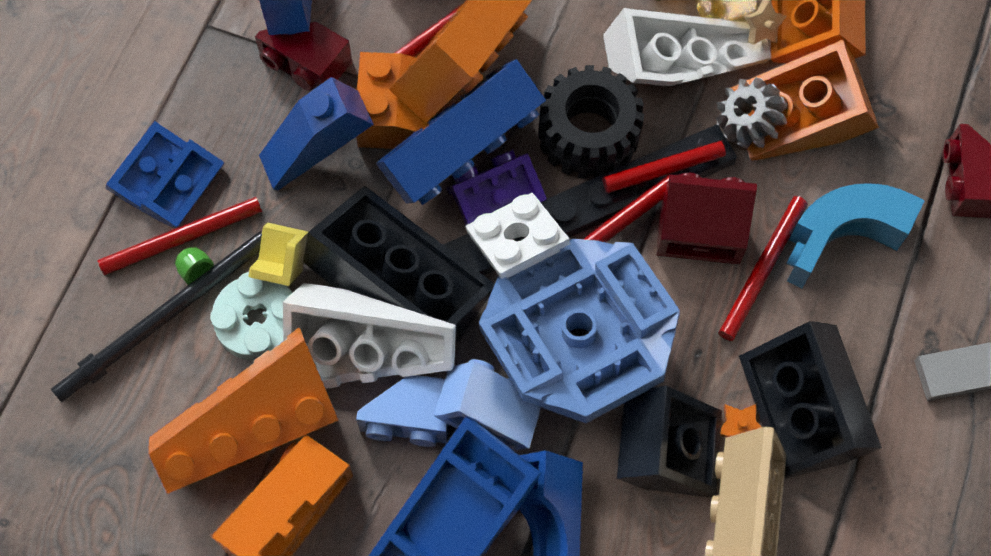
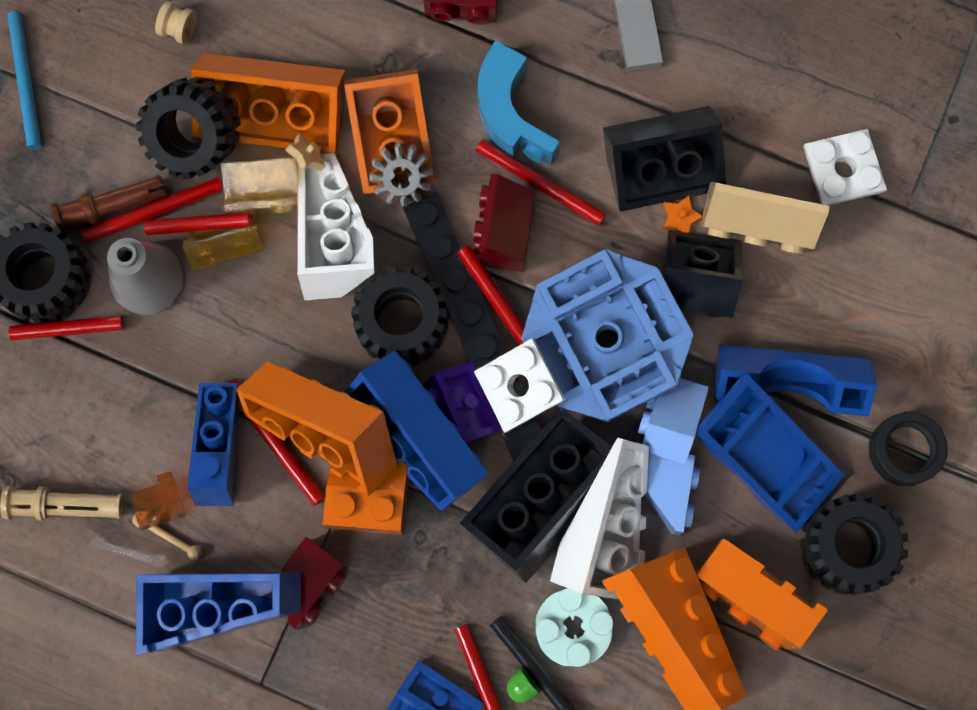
camera: 85 degrees left, 10 degrees up
(280, 254) = (522, 603): light yellow panel -> none
(314, 130) = (406, 569): blue slope -> none
(664, 166) = (450, 255): red bar -> none

